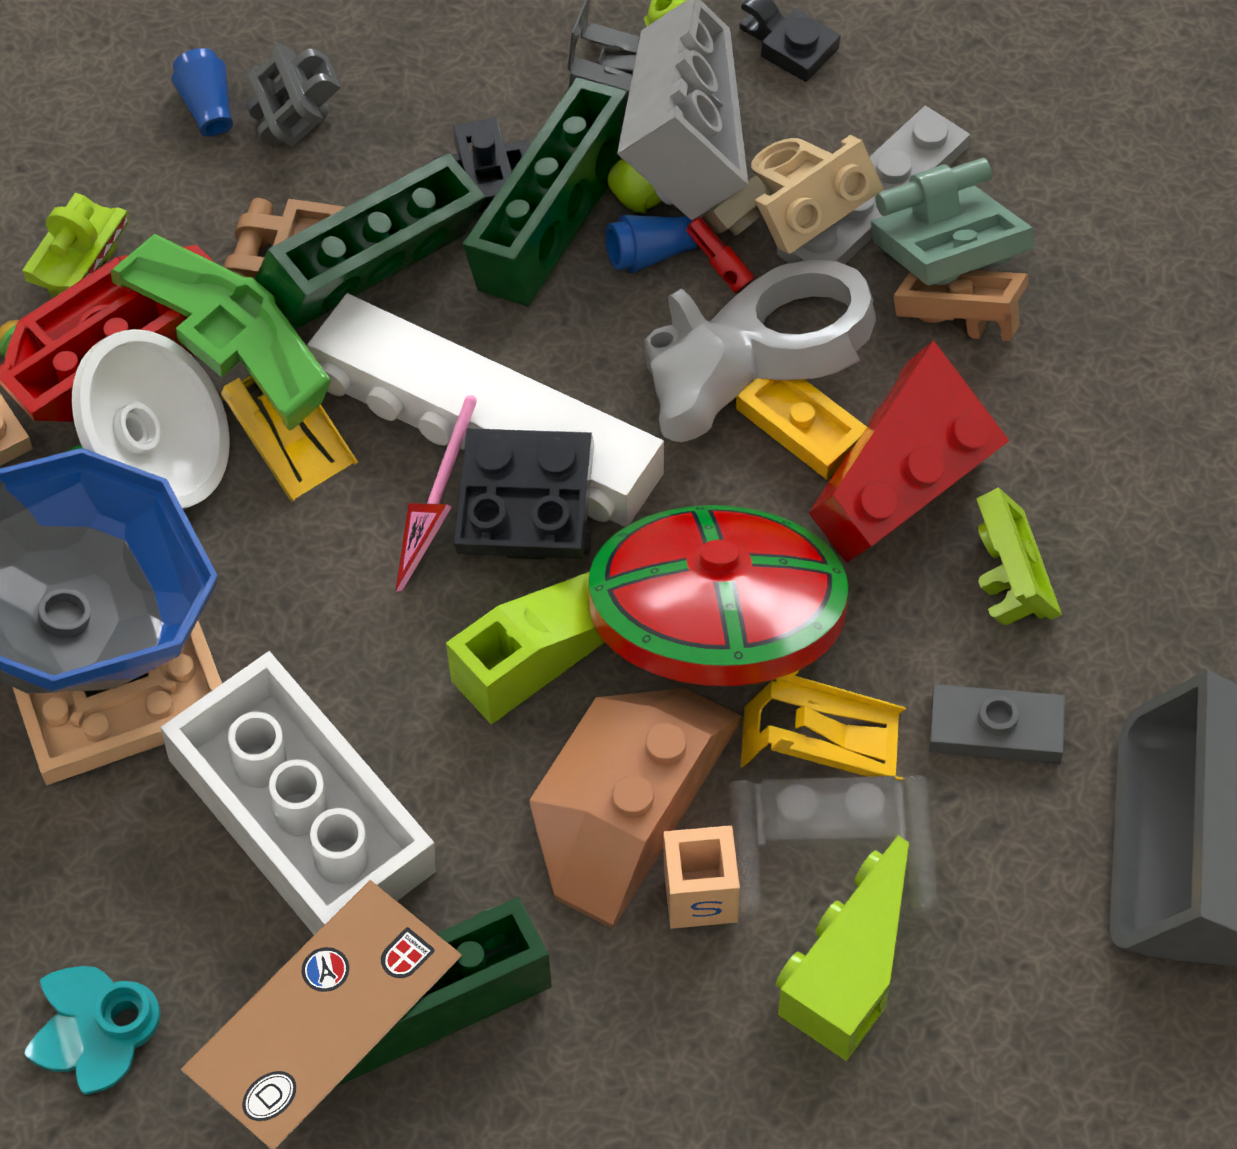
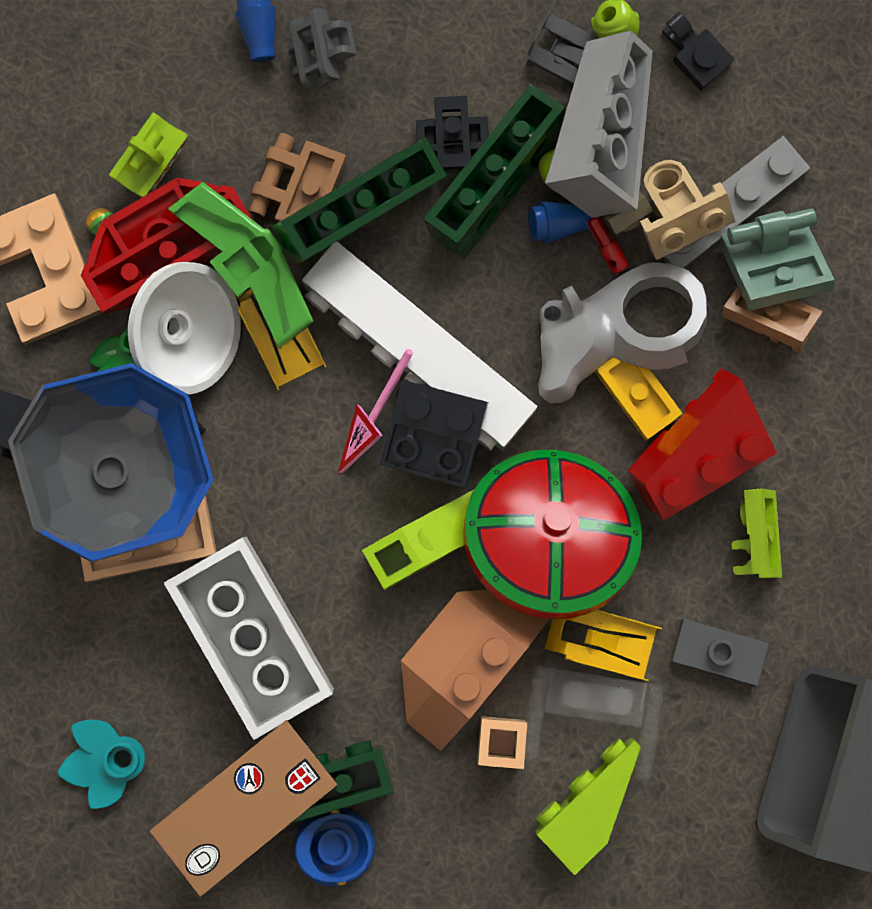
camera: 10 degrees right, 25 degrees up
(472, 1084) = (335, 847): none -> blue piece

